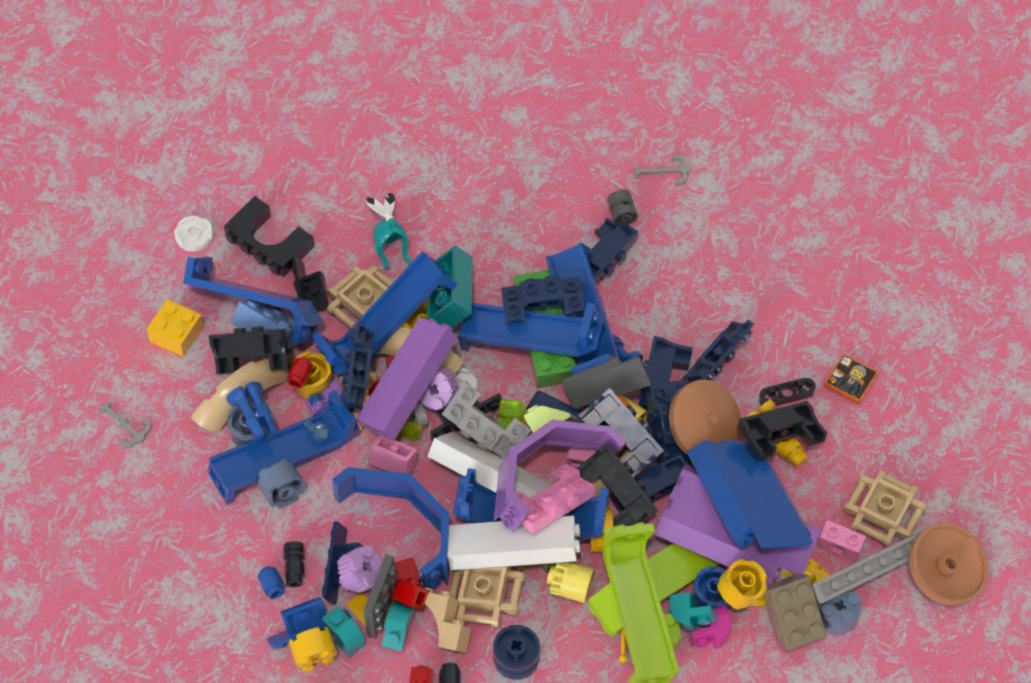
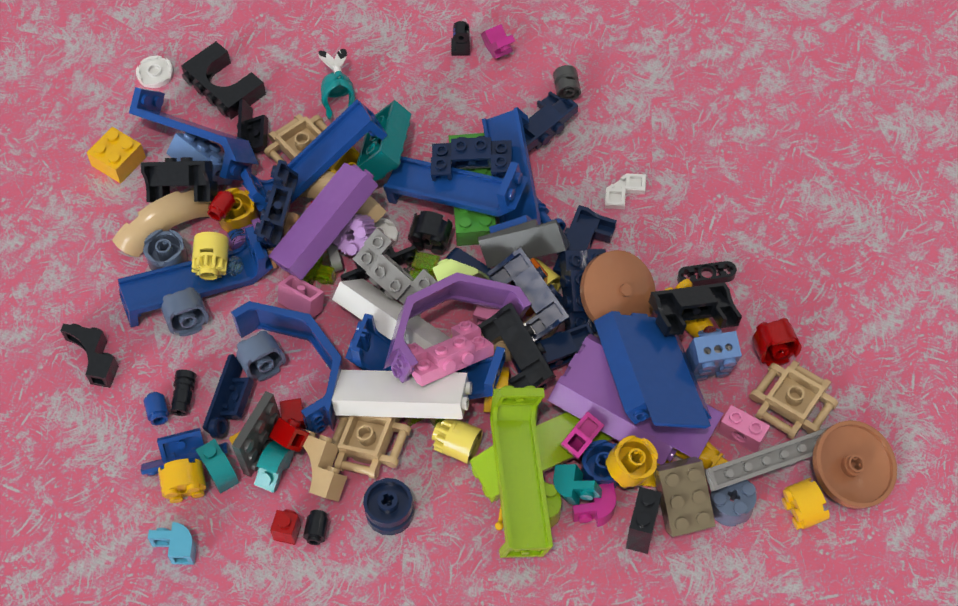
camera: 10 degrees right, 0 degrees up
(139, 437) = (61, 254): light grey piece -> none
(193, 523) = (101, 366): none -> black arch
(257, 419) = (176, 242): blue piece -> none
(297, 424) = (210, 255): none -> light yellow gear
(336, 594) = (218, 427): none -> dark blue tile
(359, 569) = (239, 402): lavender brick -> none
(365, 520) = (260, 356): none -> sand blue brick
(508, 172) = (461, 39): none -> black leg
(510, 378) = (430, 232): none -> black brick
(544, 169) = (497, 42): none -> dark pink brick
(683, 169) = (633, 55): light grey piece -> none
(691, 564) = (582, 435): none -> dark pink brick
(696, 308) = (629, 184): none -> white tile
(720, 350) = (643, 226): dark blue bracket -> none
(759, 638) = (643, 520): none -> black brick
(805, 471) = (713, 353): none -> medium blue piece
(851, 379) = (773, 267): tile -> none
(862, 454) = (776, 342): none -> red brick
(907, 605) = (805, 503): none -> yellow brick

